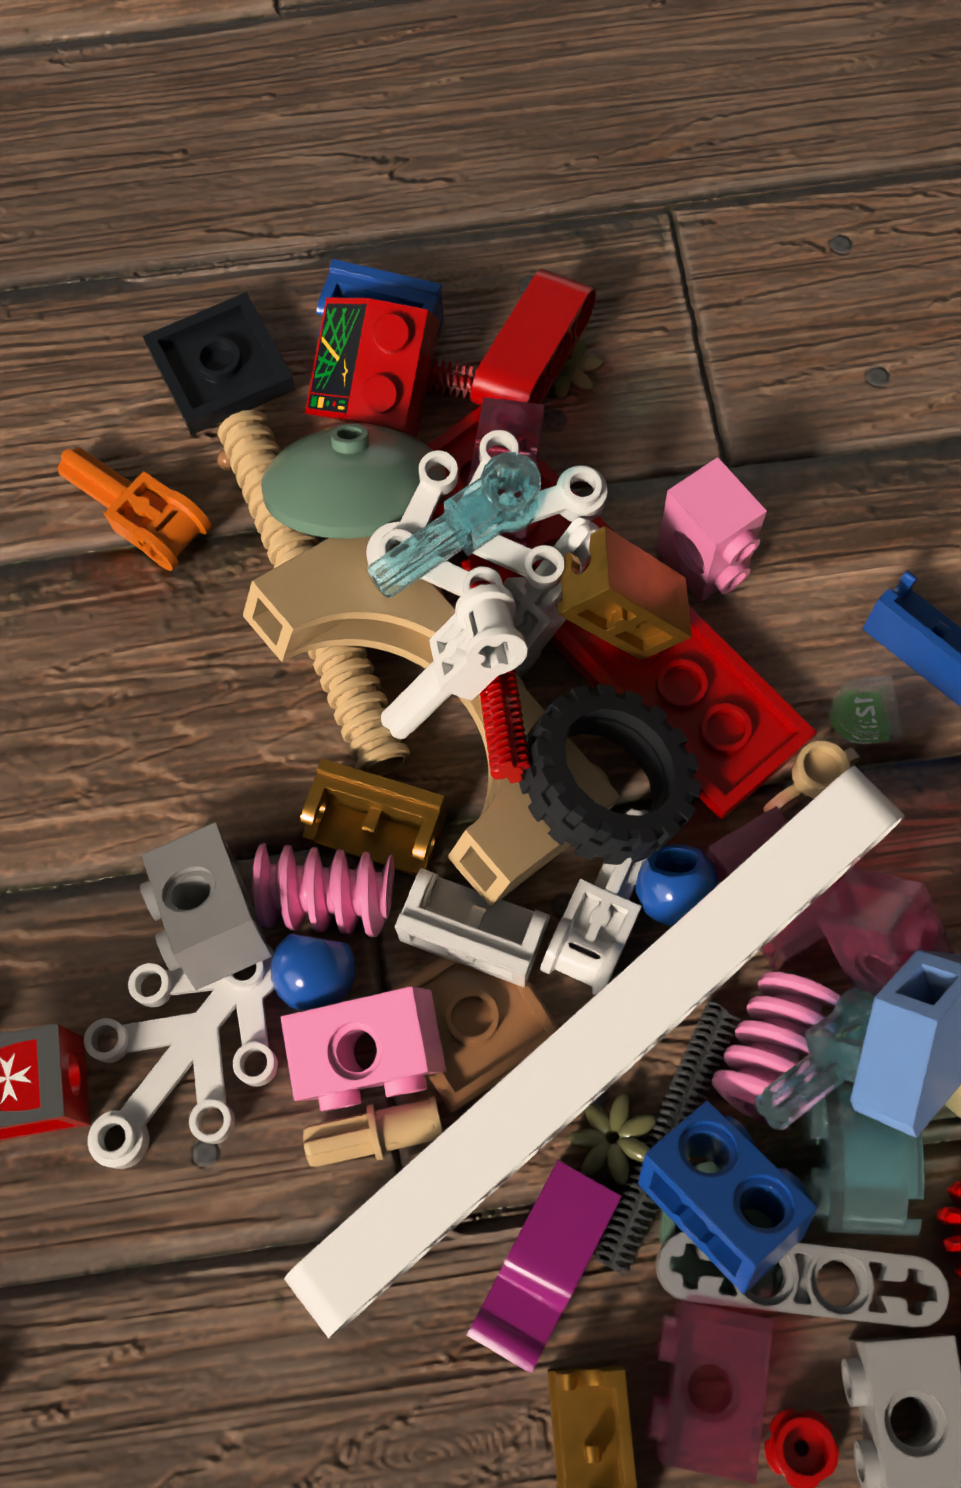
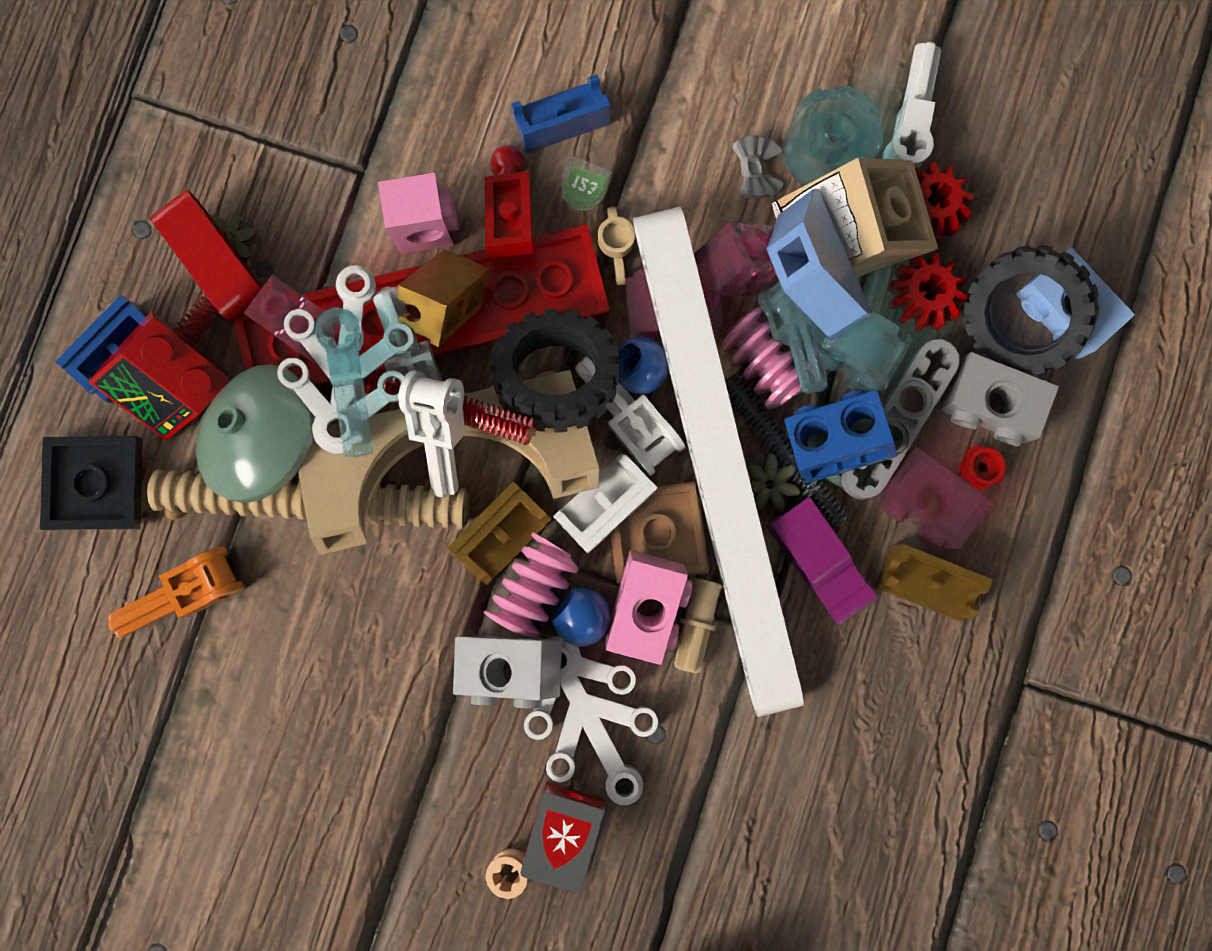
camera: 70 degrees left, 15 degrees up
(783, 630) = (508, 205): none -> red plate

